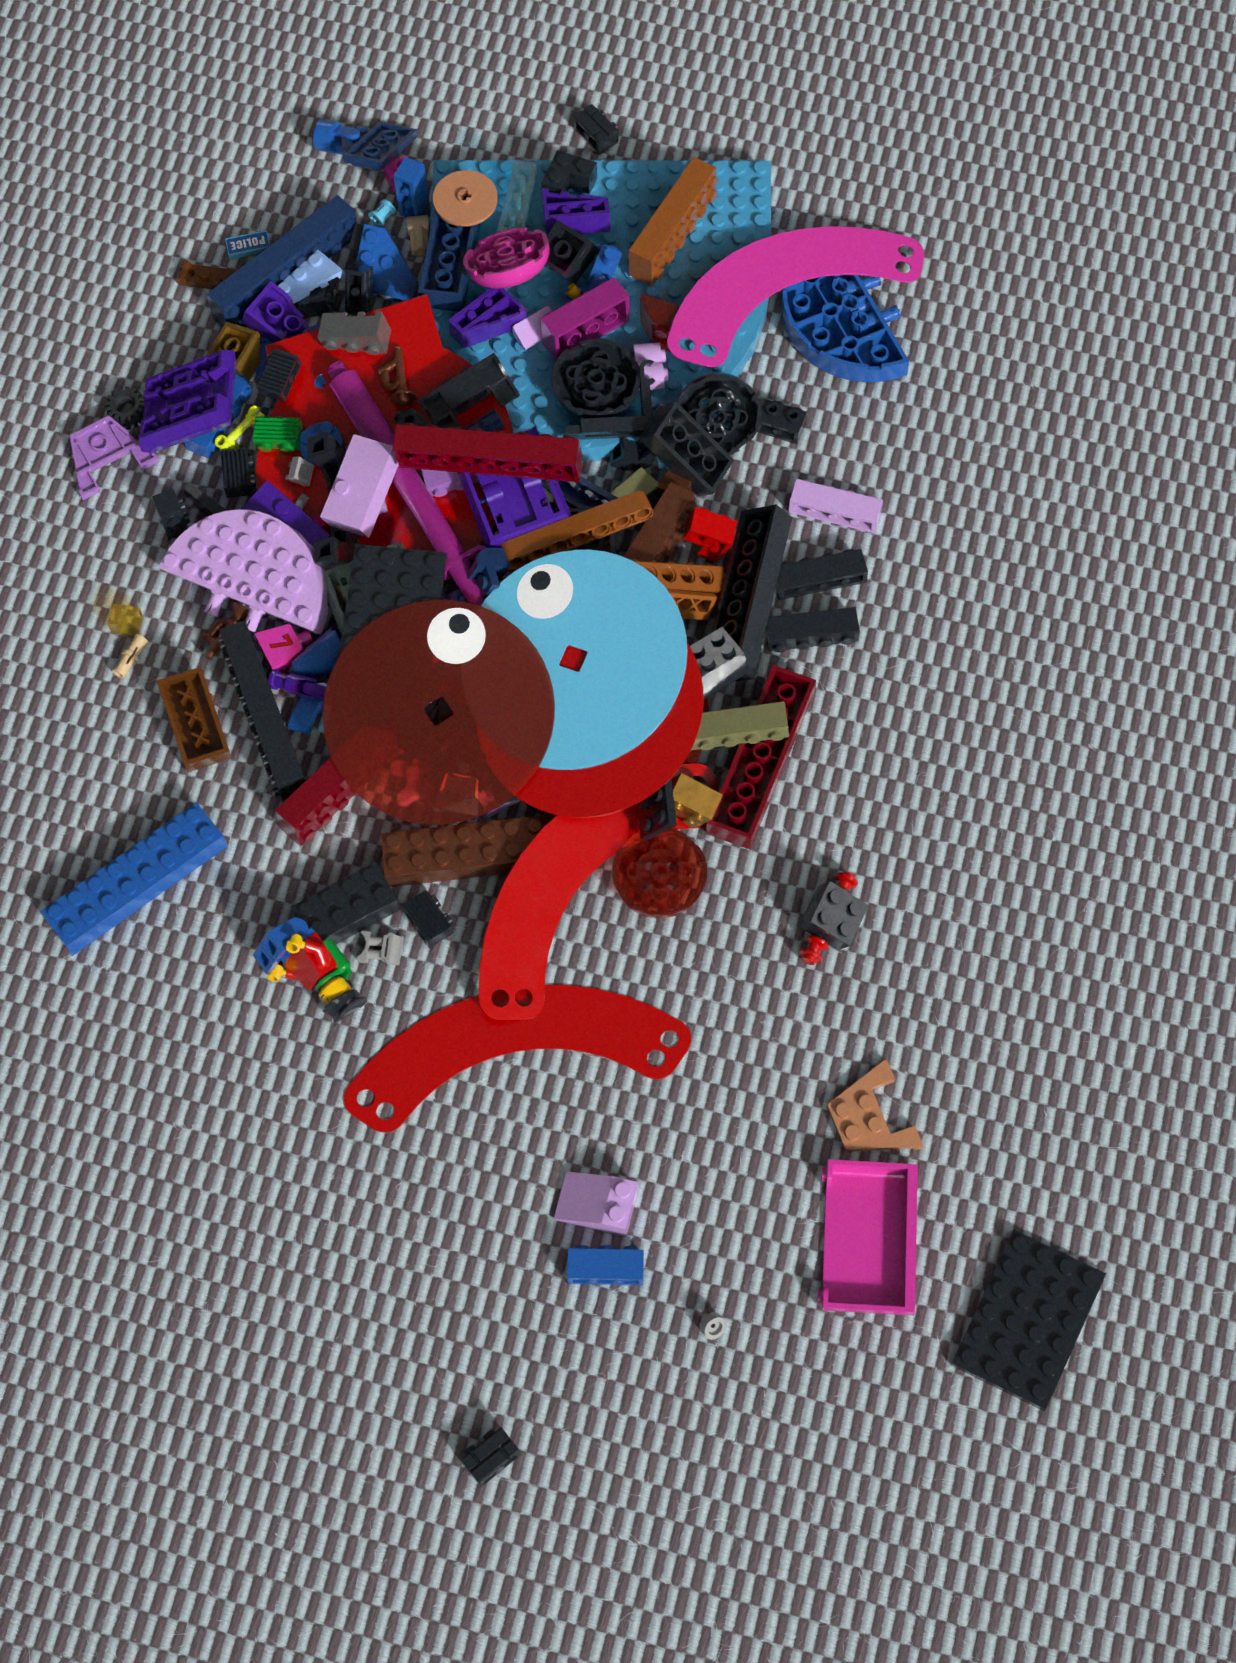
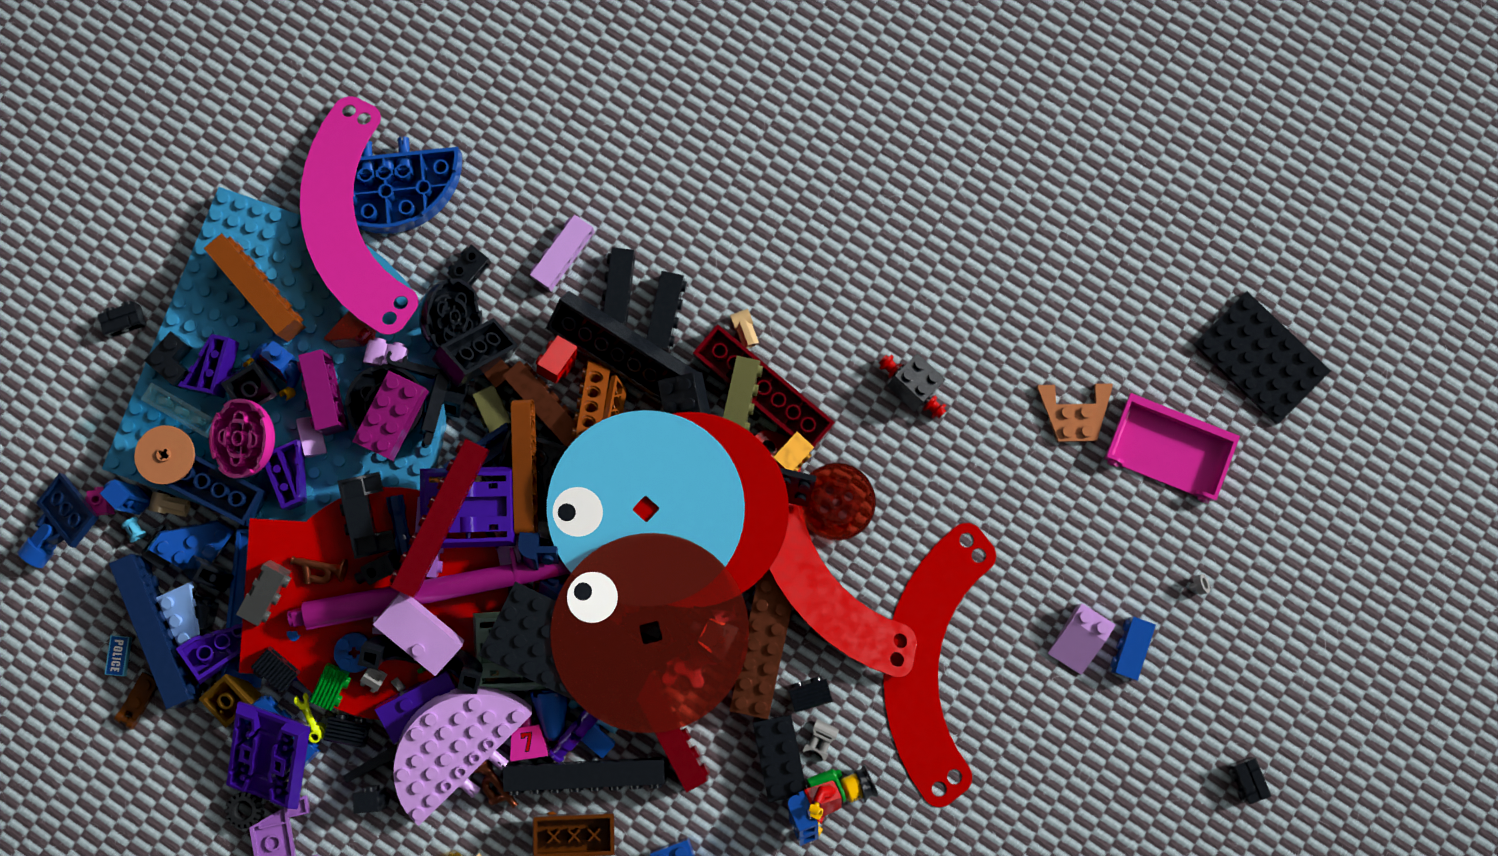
camera: 70 degrees left, 15 degrees up
(582, 383) = (390, 415): none -> magenta brick
(830, 713) = (744, 325): none -> tan piece

